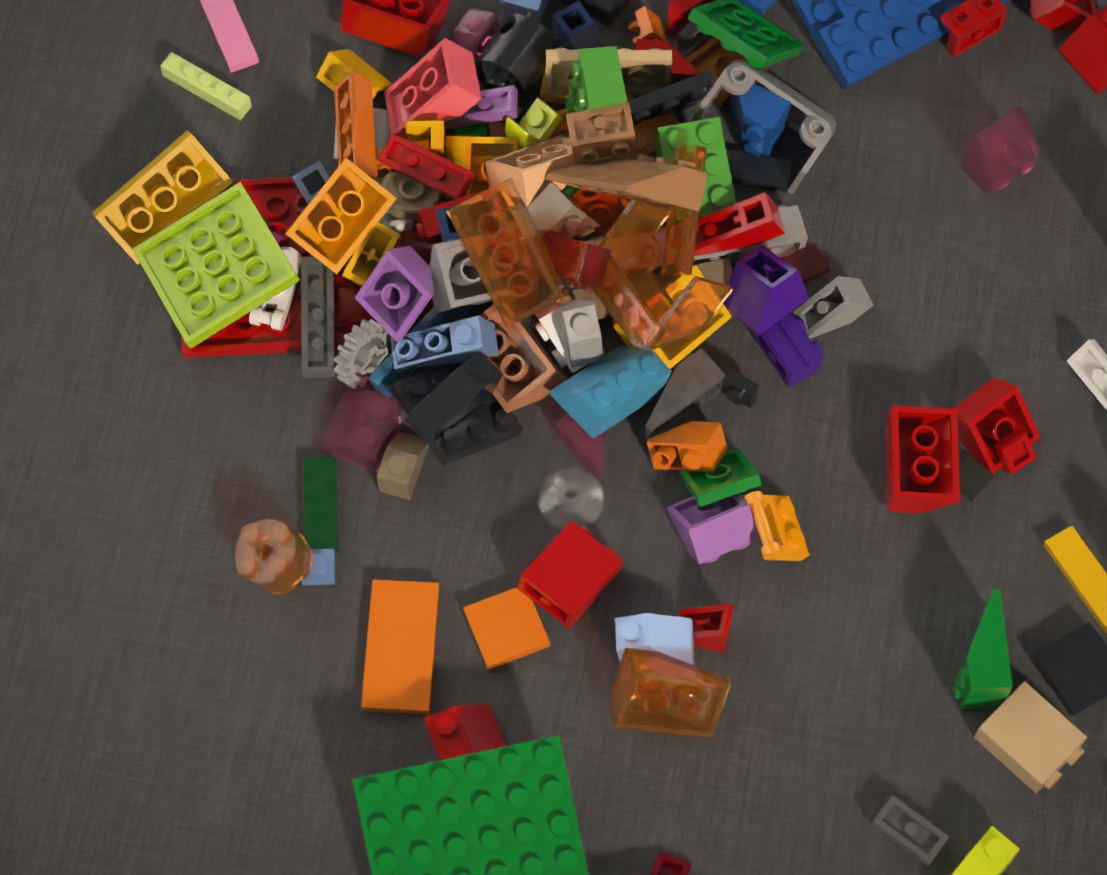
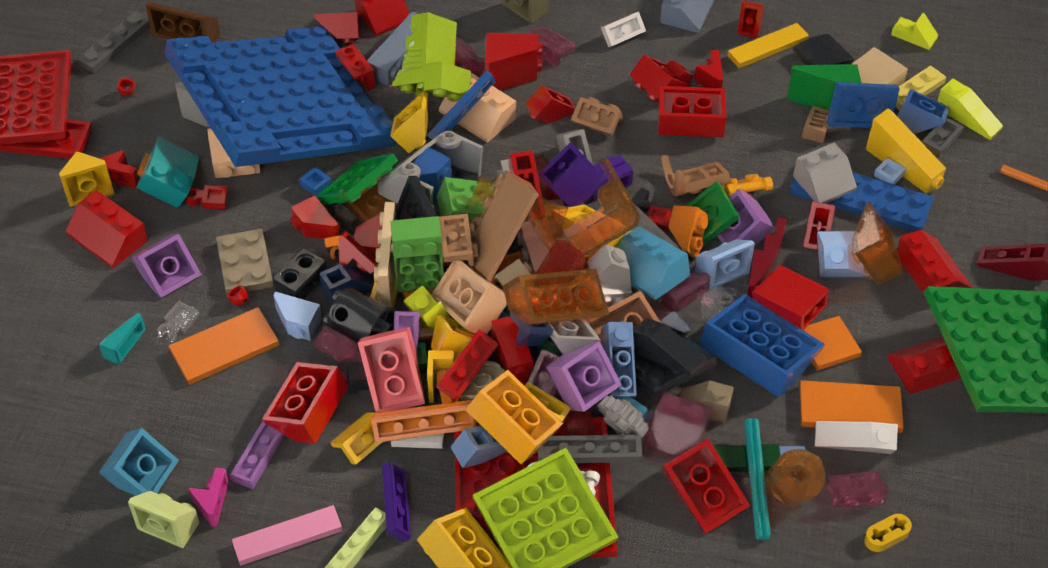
camera: 90 degrees left, 15 degrees down
(212, 667) = (885, 528): none -> yellow beam
(258, 118) = (396, 502): none -> dark purple tile
(270, 641) = (857, 489): none -> clear pink bracket
(272, 450) = (705, 485): none -> red slope
(287, 514) = (757, 479): none -> teal axle
(341, 646) = (857, 436): none -> white slope
(493, 533) = (760, 344): none -> blue slope
(526, 430) = (675, 321): none -> sand blue slope
(622, 31) = (350, 249): none -> red slope
(633, 491) = (726, 262): none -> light blue slope
(643, 783) = (929, 262): none -> red slope
(660, 558) = (765, 260): none -> dark red slope
(726, 413) = (660, 216): none -> red tile
(783, 700) = (894, 203): none -> blue plate
(787, 460) = (693, 179): none -> medium nougat piece
(796, 634) = (825, 174): none -> light grey slope
(828, 742) = (889, 171): none -> light blue plate
(850, 91) = (411, 124): none -> yellow slope
(858, 762) = (893, 140): none -> yellow slope
(887, 149) = (462, 107): none -> blue tile
(911, 337) = (596, 116): none -> medium nougat bracket
(914, 182) = (488, 115): none -> light nougat slope
(924, 276) = (549, 105): none -> red slope
(933, 638) = (816, 125): none -> medium nougat slope
(942, 700) = (860, 103): none -> blue plate
(952, 799) = (922, 112): none -> blue slope
(956, 100) = (431, 59): none -> lime brick
(996, 210) = (513, 59): none -> red slope
(1010, 501) = (710, 74): none -> red slope
(1021, 808) = (923, 82): none -> light yellow plate
(1023, 77) = (390, 55): none -> sand blue brick
(1058, 273) = (553, 44): none -> clear pink bracket

